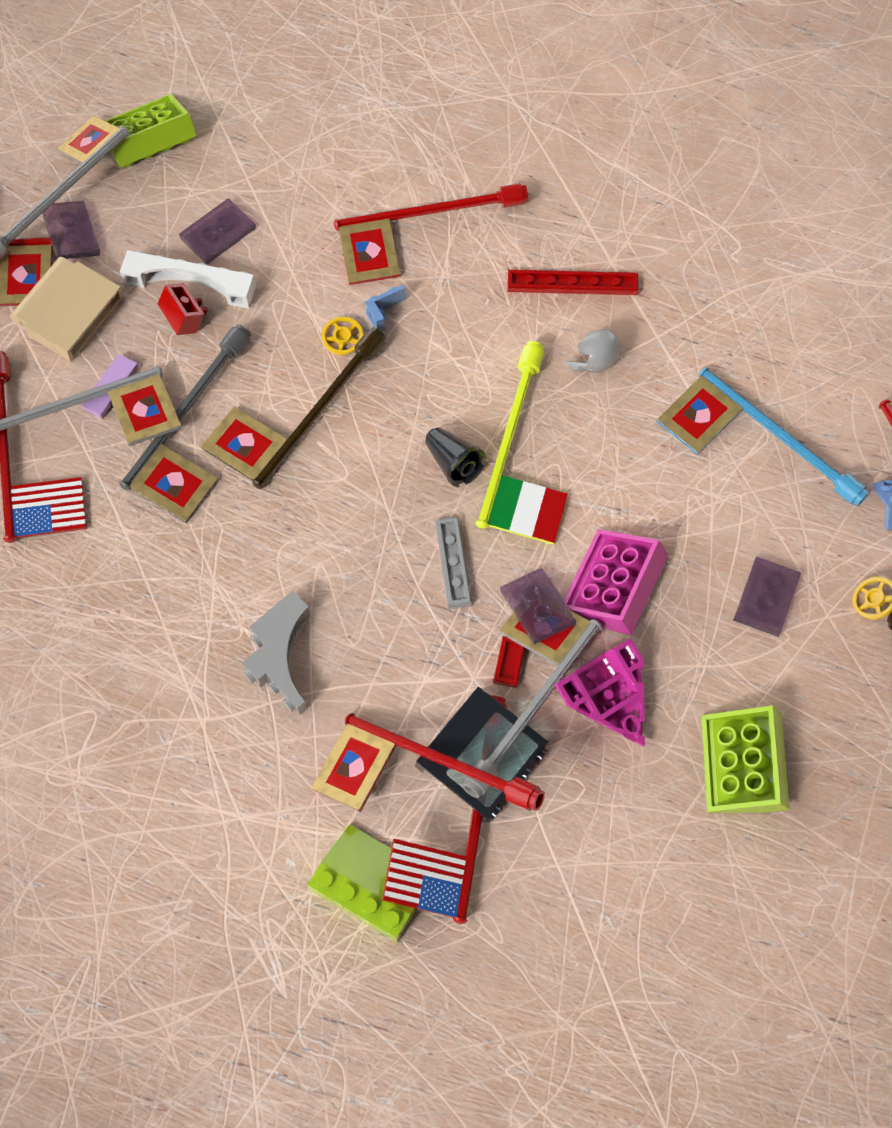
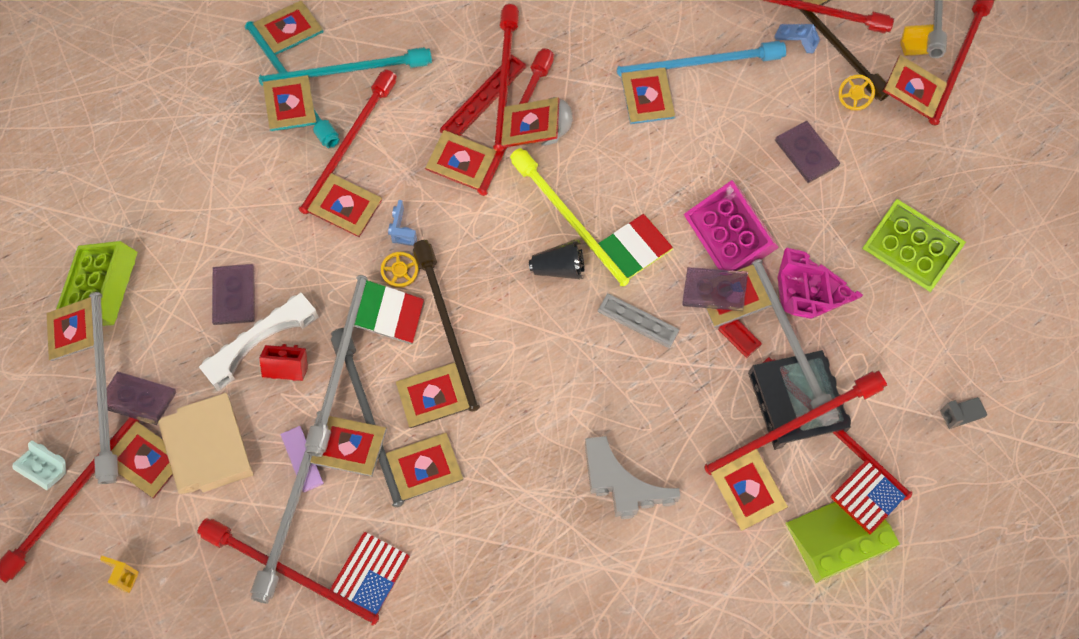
camera: 55 degrees left, 0 degrees up
(283, 341) = (374, 310): none -> flag
(437, 130) = (289, 93): none -> flag
(488, 83) = (283, 31): none -> flag
(496, 320) = (472, 162): none -> flag
(573, 331) = (526, 121): none -> flag
(594, 923) = (963, 413): none -> dark grey bracket

